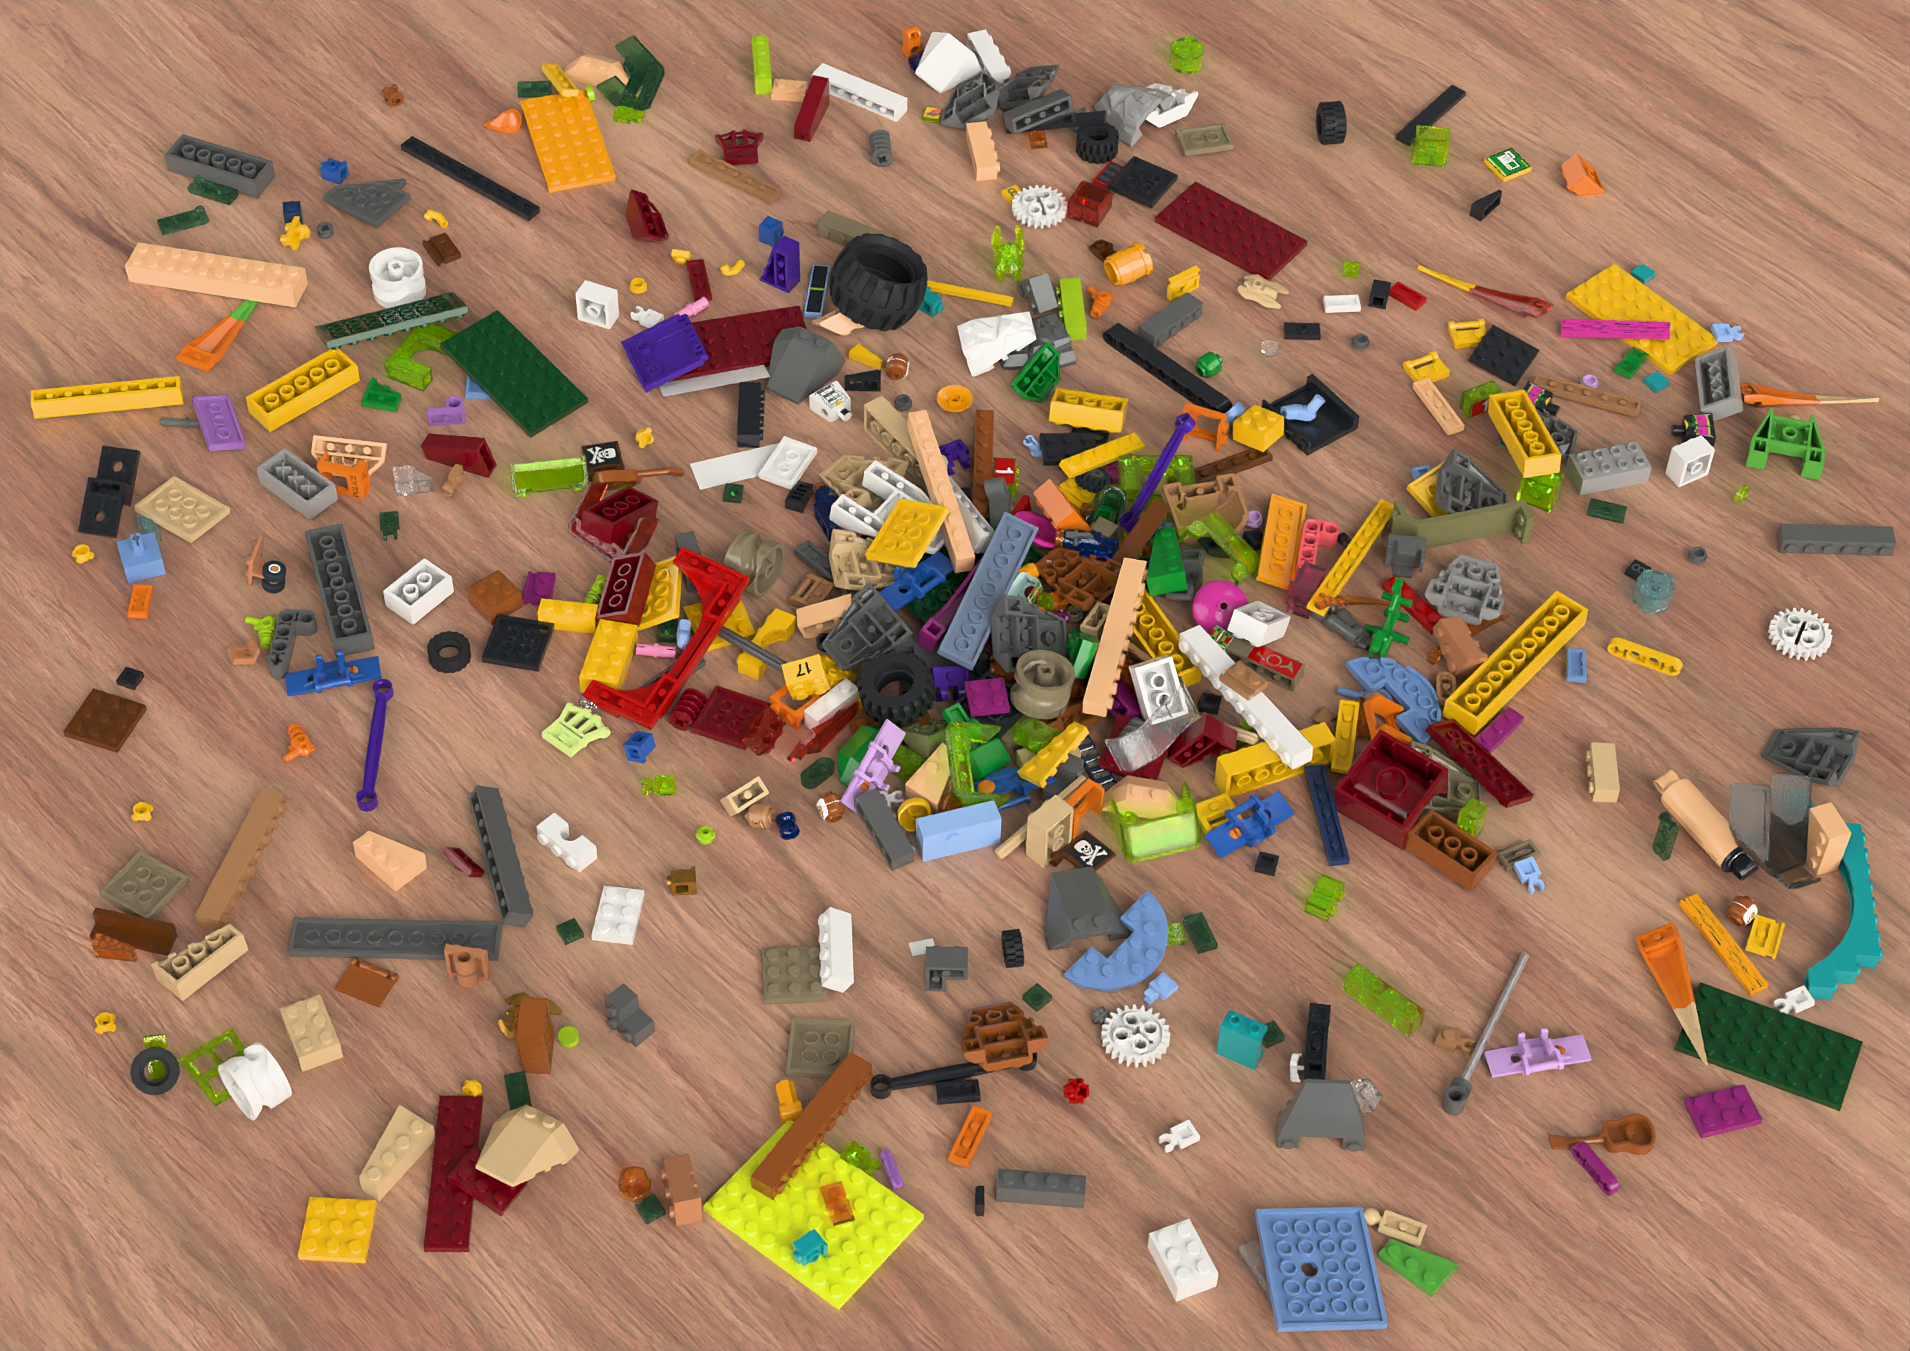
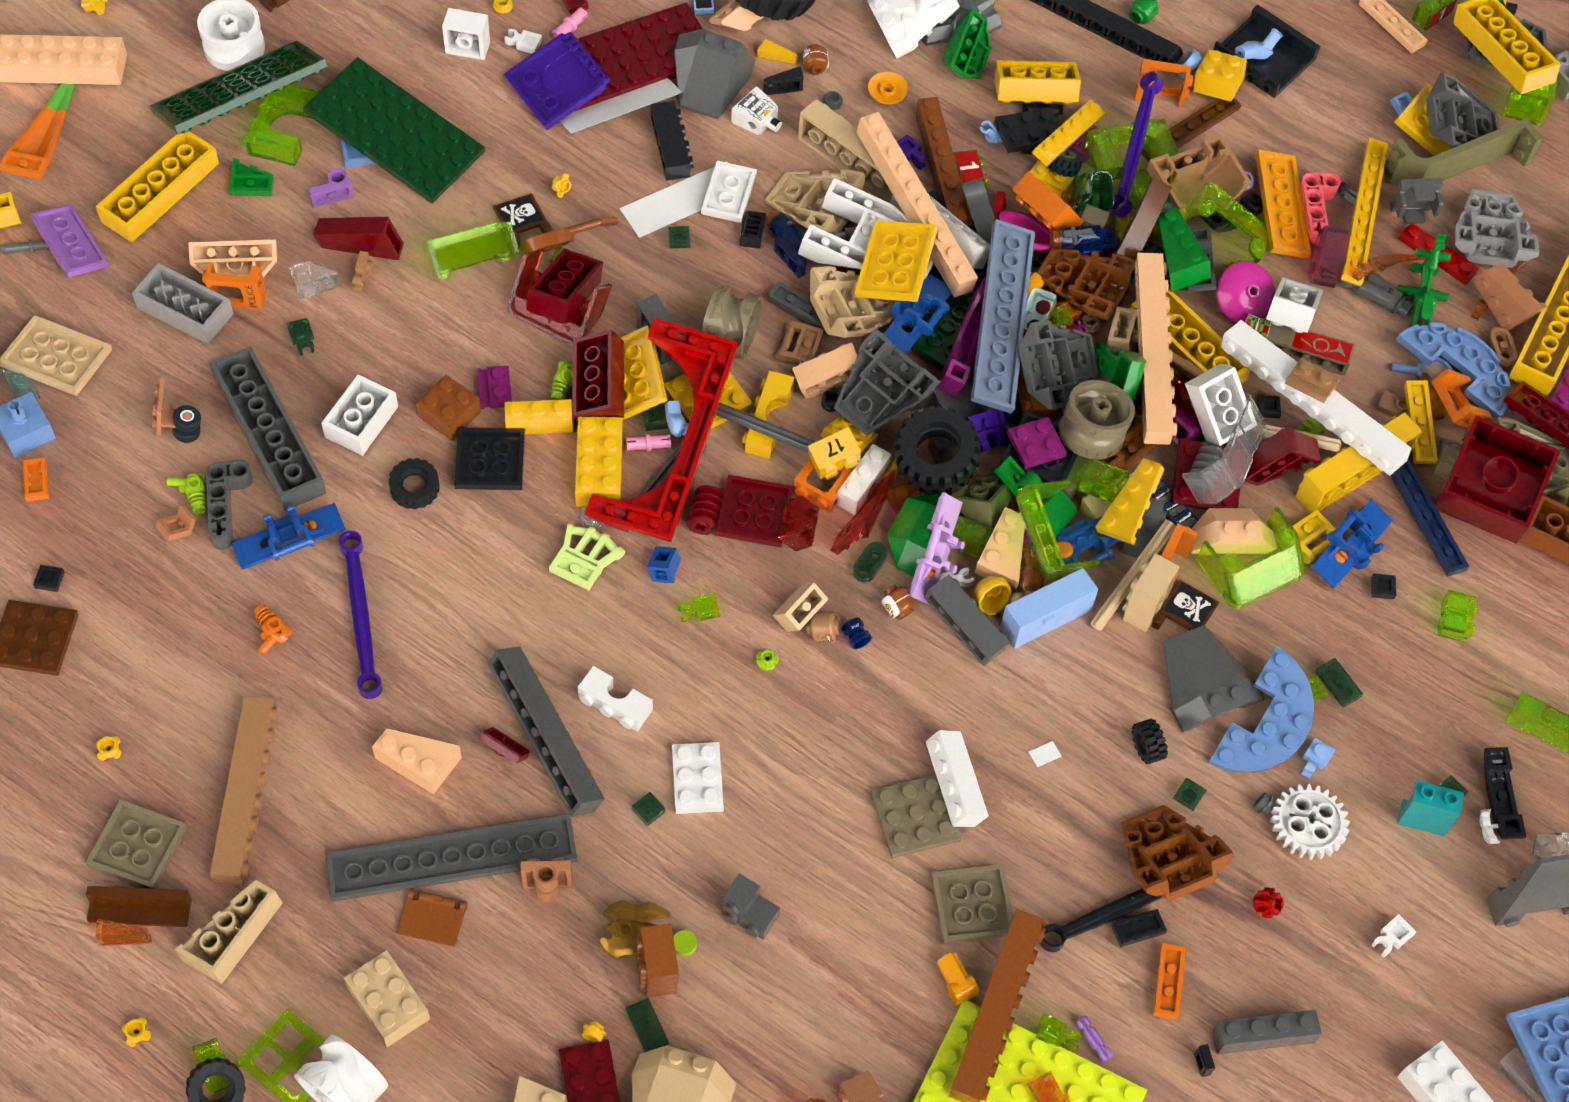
camera: 15 degrees left, 10 degrees up
(682, 881) = (760, 724): pearl gold brick -> none
(944, 965) = (1085, 777): dark grey brick -> none

